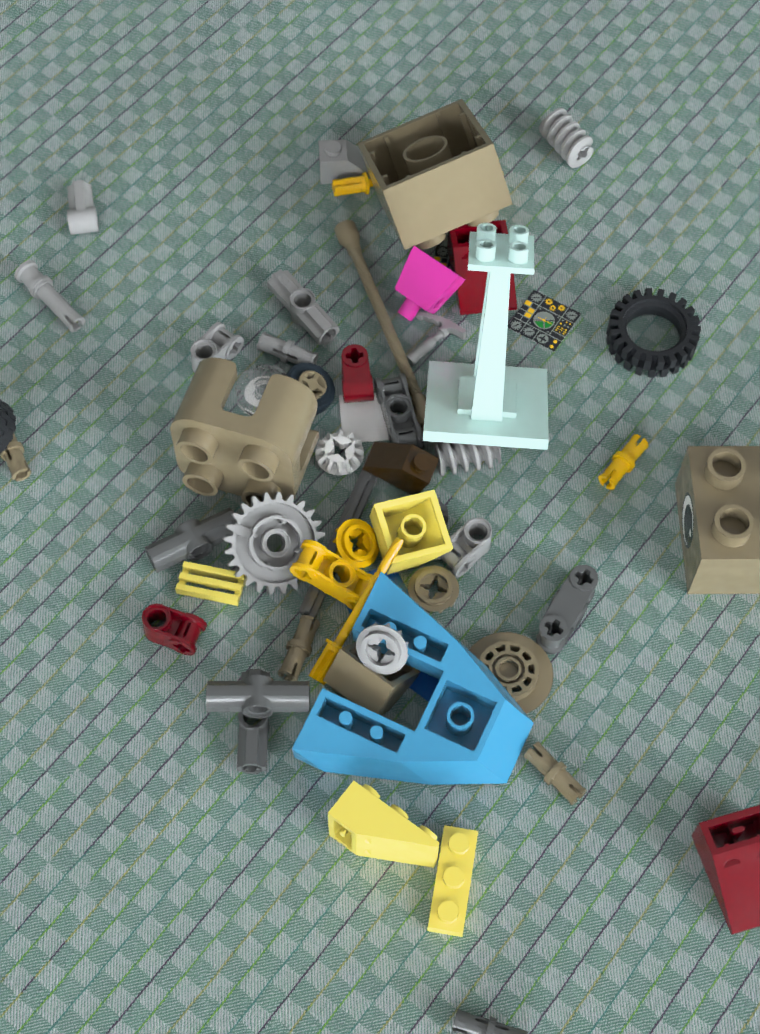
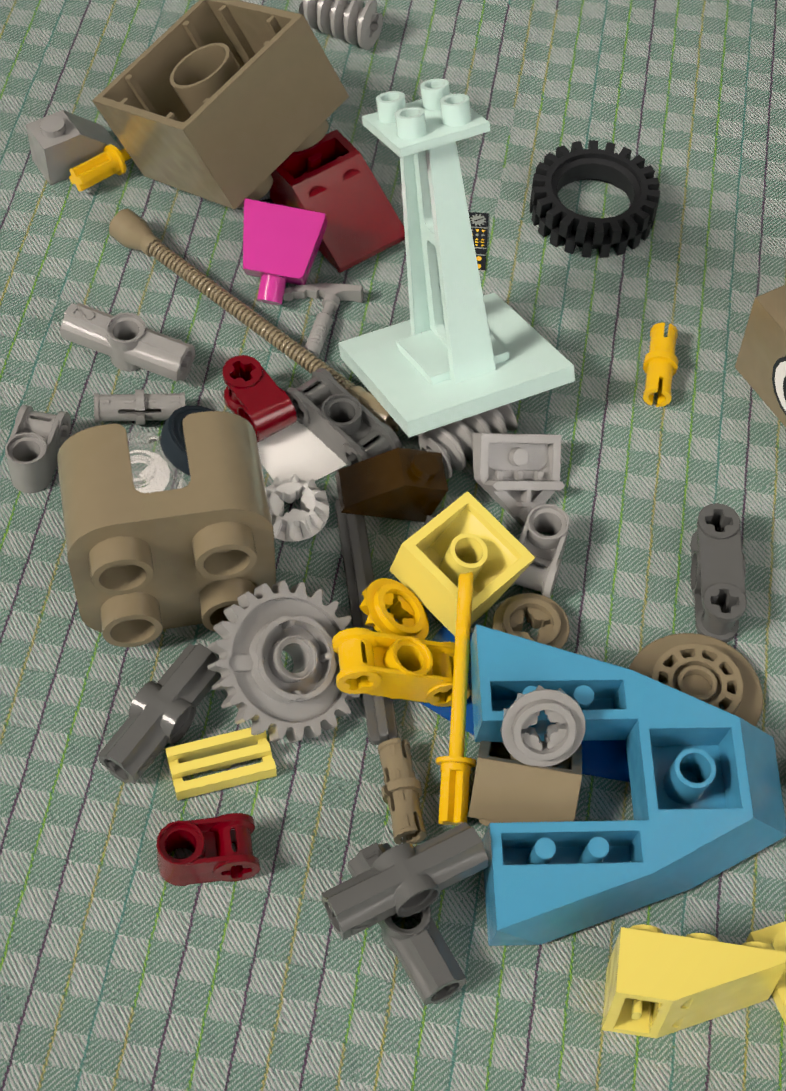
camera: 30 degrees left, 5 degrees down
(486, 488) = (518, 469): none -> light grey slope

